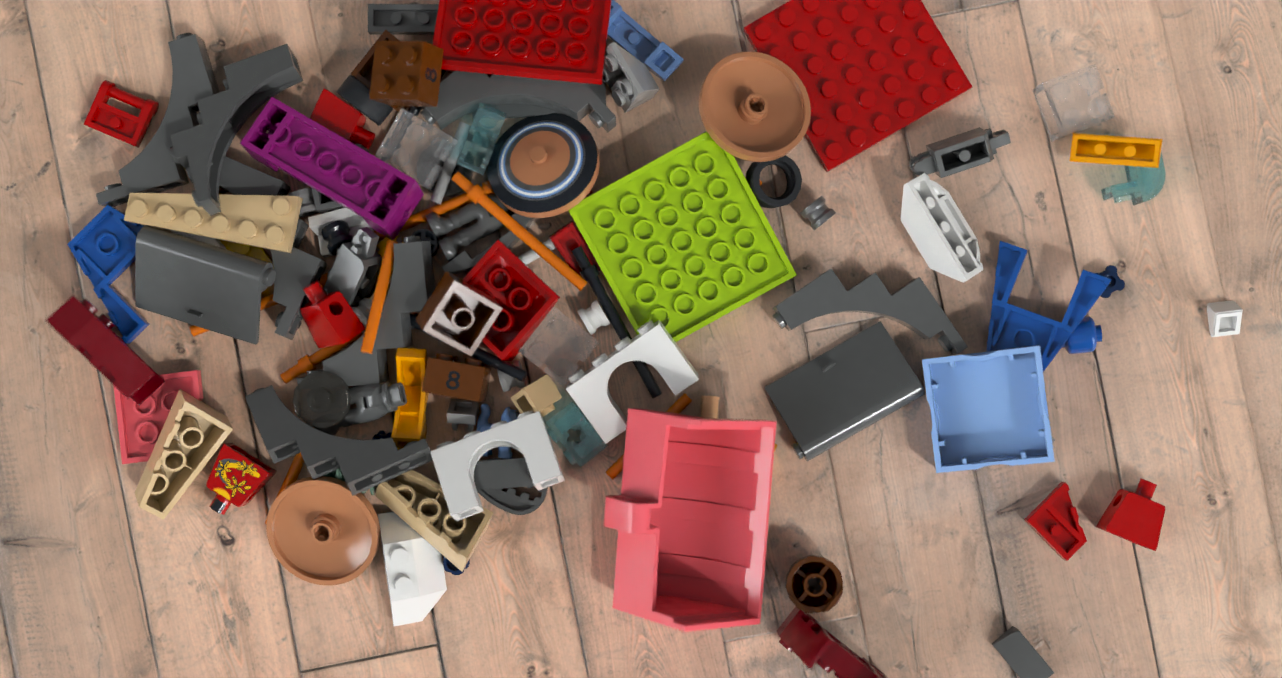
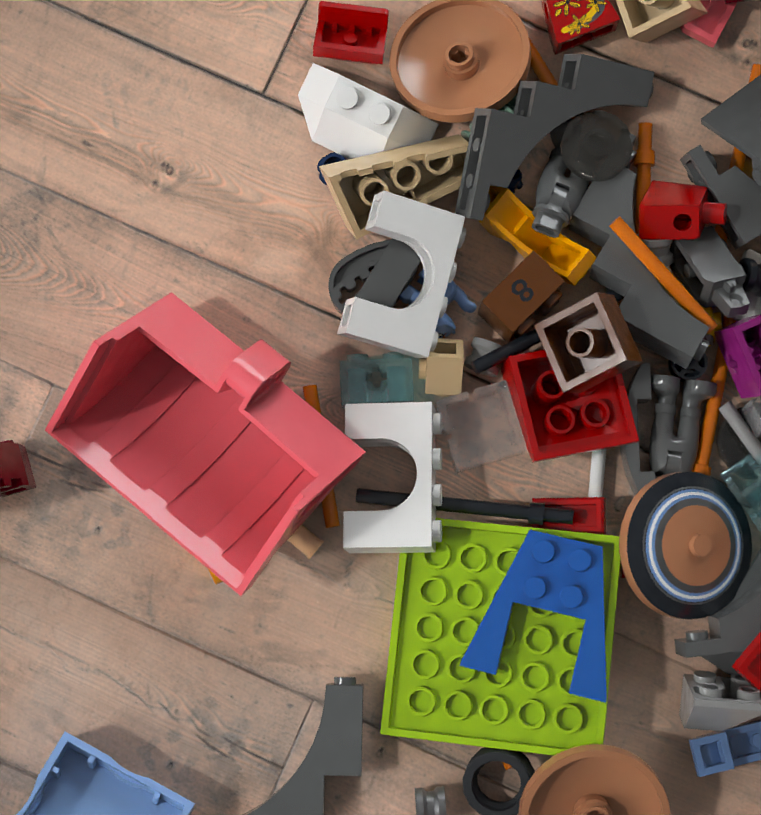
camera: 125 degrees right, 5 degrees down
(356, 615) = (351, 32): none -> red bracket
(462, 412) = (481, 279): light grey tile -> none
(478, 195) = (701, 452): orange bar -> none
(593, 317) = (486, 485): white wheel -> none
(623, 232) = (558, 578): none -> blue wing
(814, 584) = (43, 517): reddish brown cylinder -> none
(844, 391) = (220, 697): dark grey door -> none

